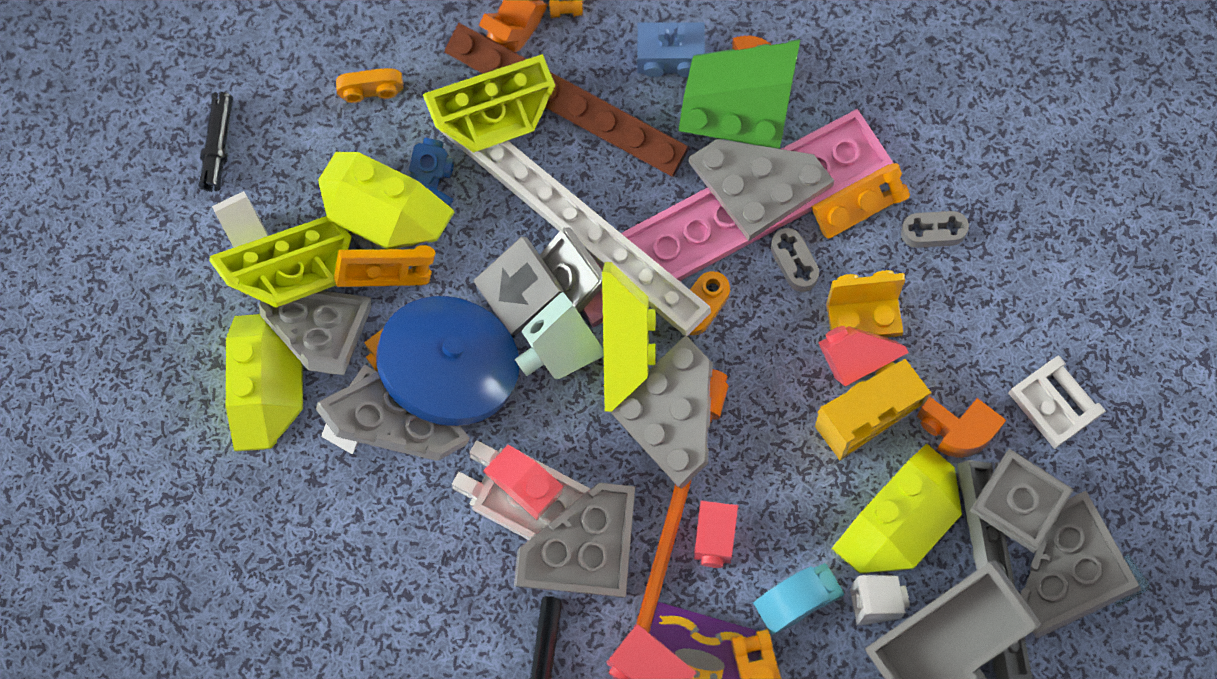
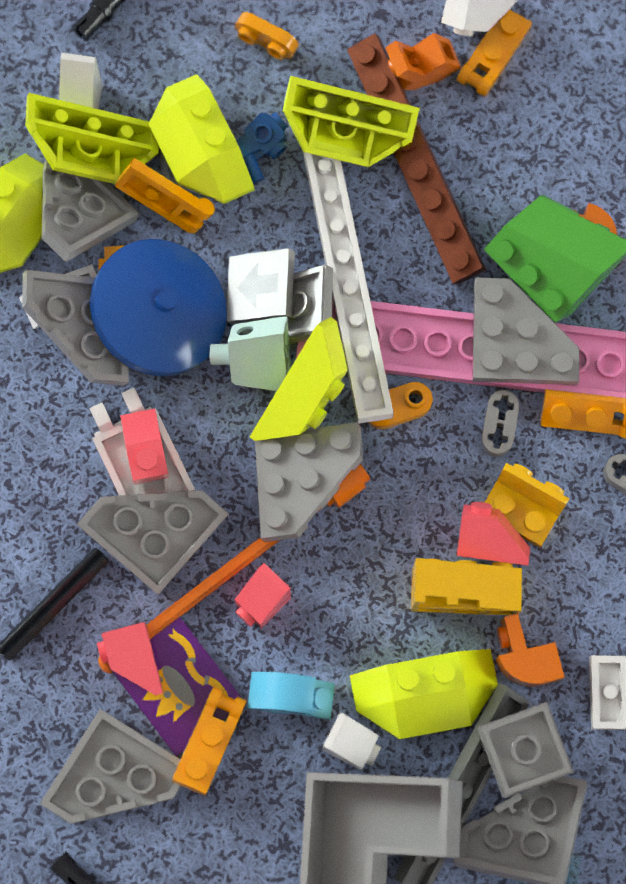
camera: 30 degrees right, 5 degrees up
(668, 47) = (532, 172): medium blue brick -> none

